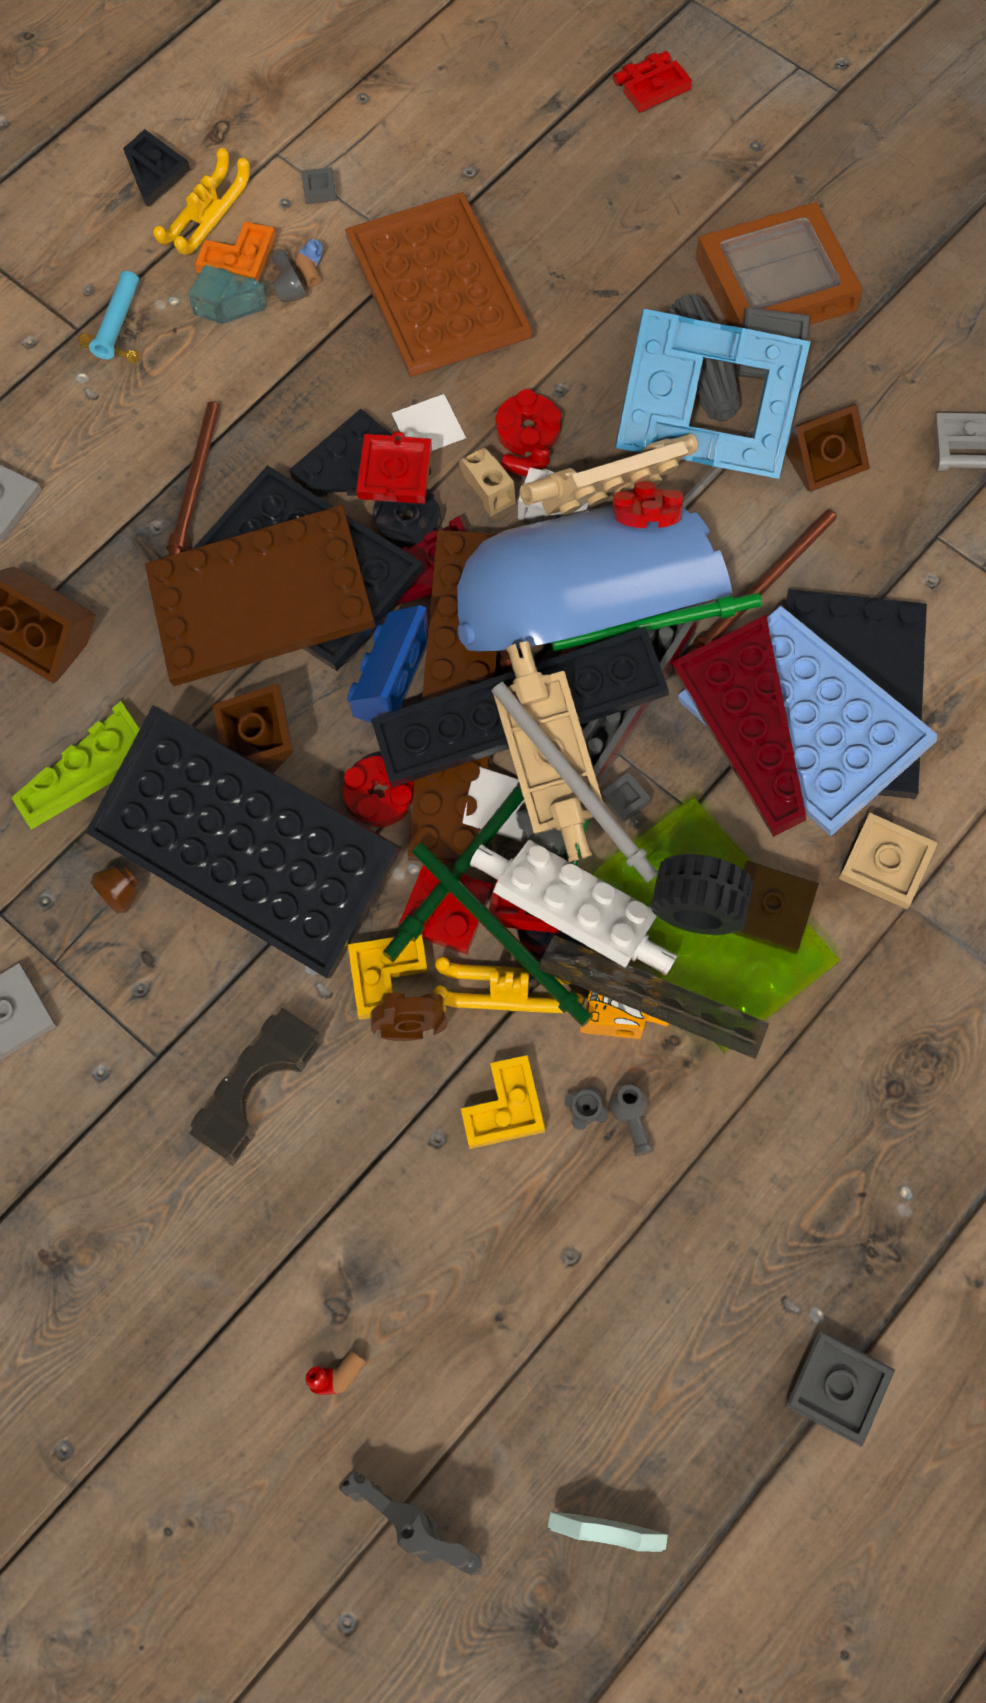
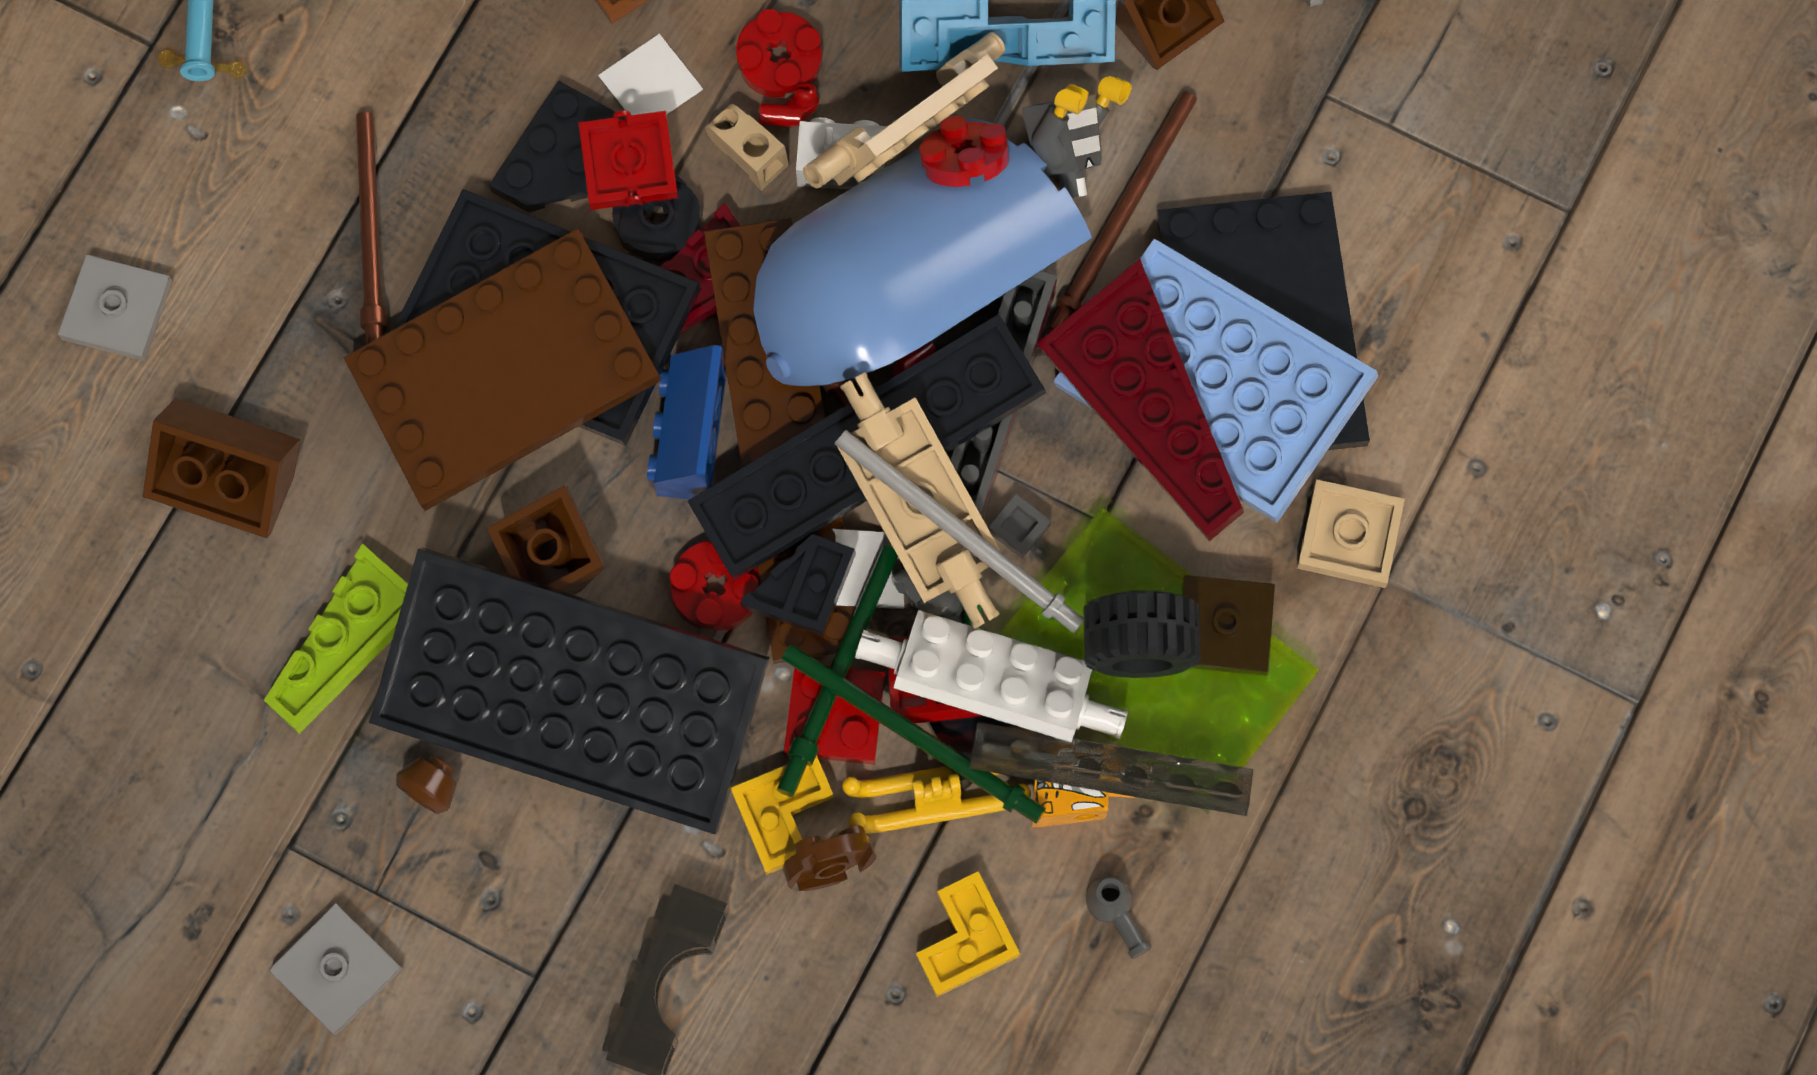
camera: 15 degrees left, 5 degrees up
(445, 802) = (805, 586): none -> black wing
(589, 1097) = (1065, 903): dark grey plate -> none
(723, 607) = (1084, 262): green bar -> none
(733, 511) = (1068, 130): none -> dark grey torso

